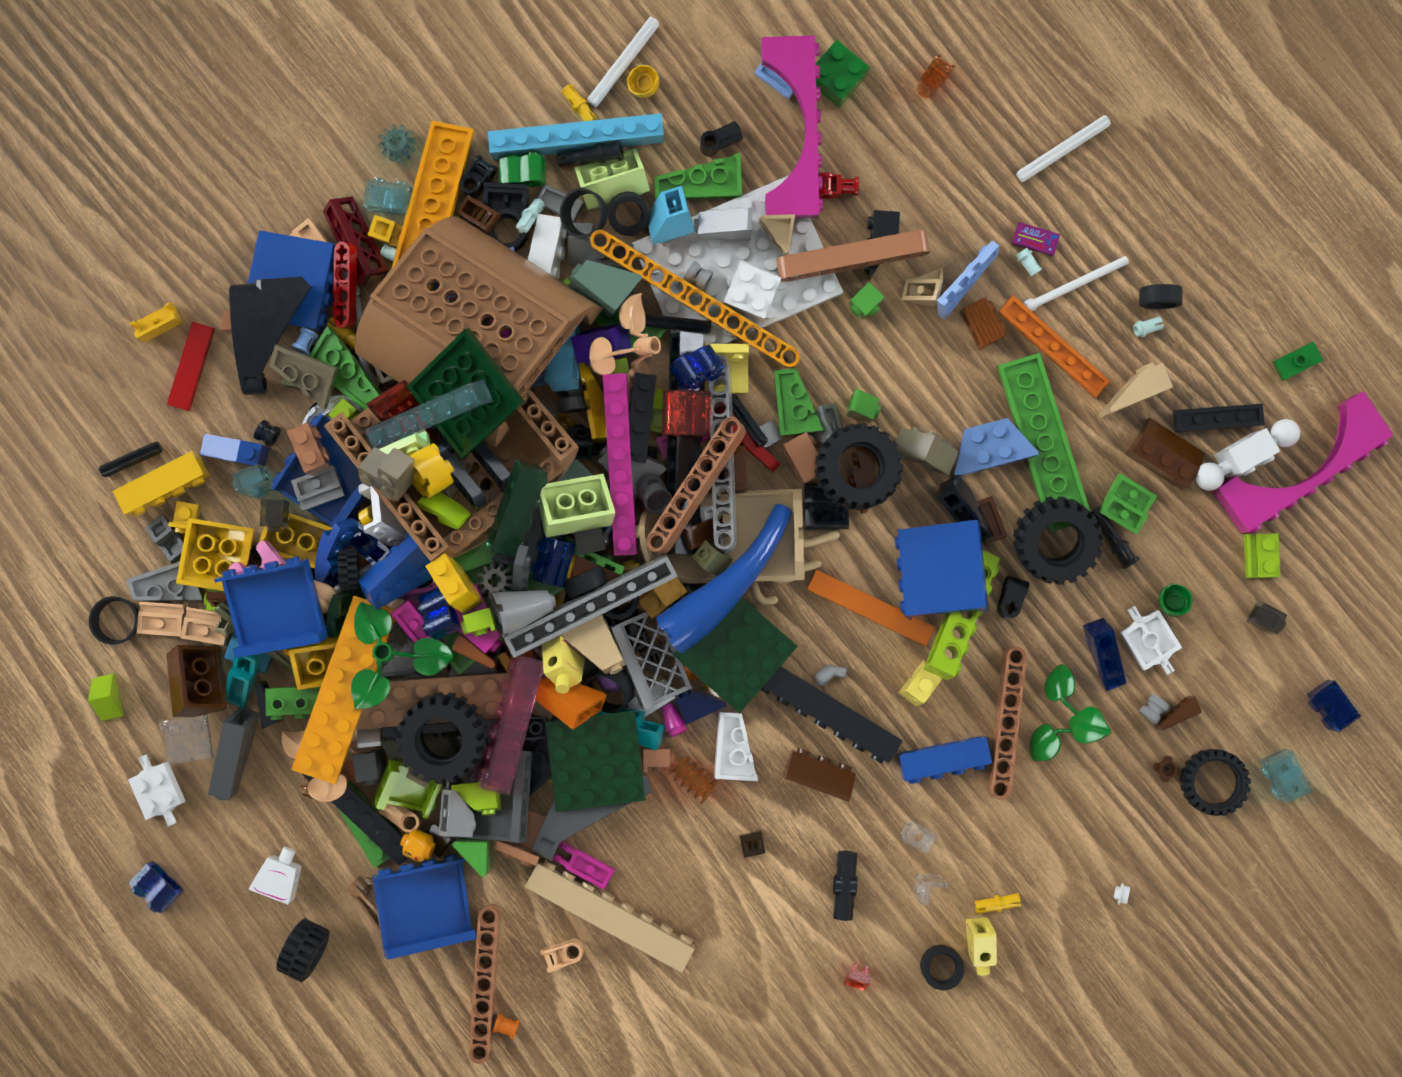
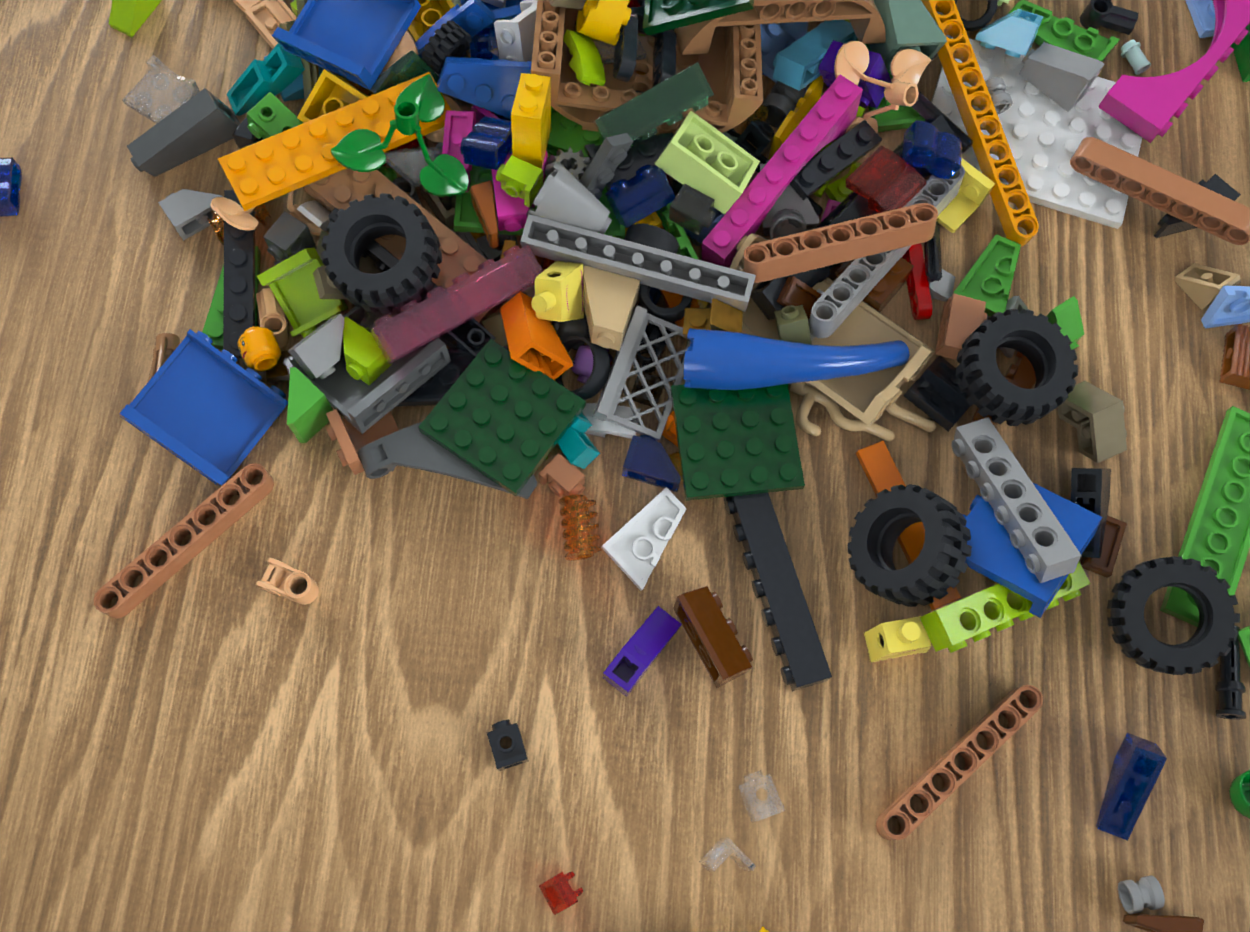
camera: 35 degrees right, 15 degrees down
(157, 790) = (89, 112): white plate -> none
(196, 680) = (220, 50): reddish brown slope -> none
(278, 877) = (108, 272): white torso -> none
(285, 797) = (188, 211): none -> light grey slope
(302, 950) = (55, 347): black tyre -> none
(505, 1026) = (161, 601): orange bush -> none
(585, 866) = (394, 519): dark pink hinge -> none
(610, 915) = (371, 590): tan brick -> none
(673, 721) = (611, 459): dark pink cone -> none
(752, 292) = (1039, 145): white brick -> none
(752, 844) = (578, 648): dark brown tile -> none
(759, 154) = (1135, 56): none -> light aqua pin
(772, 930) = (507, 757): none -> black brick
(779, 230) = (1110, 113): tan slope -> none
(788, 816) = (641, 651): none -> dark purple slope
(828, 672) = (809, 547): light grey arm -> none
(837, 185) = (1191, 134): red connector -> none
(845, 885) = (636, 778): black piece -> none
(866, 301) = (1140, 247): bright green brick -> none
(872, 523) = (1015, 501): none -> light grey brick
(900, 617) = (939, 560): none -> black tyre
(944, 758) = (860, 740): blue brick -> none
(991, 447) = (1167, 476): medium blue wing -> none
(1013, 593) = (1071, 638): black piece -> none
(1085, 726) = (1067, 828): green plant -> none
(1150, 640) = (1192, 816): white plate -> none

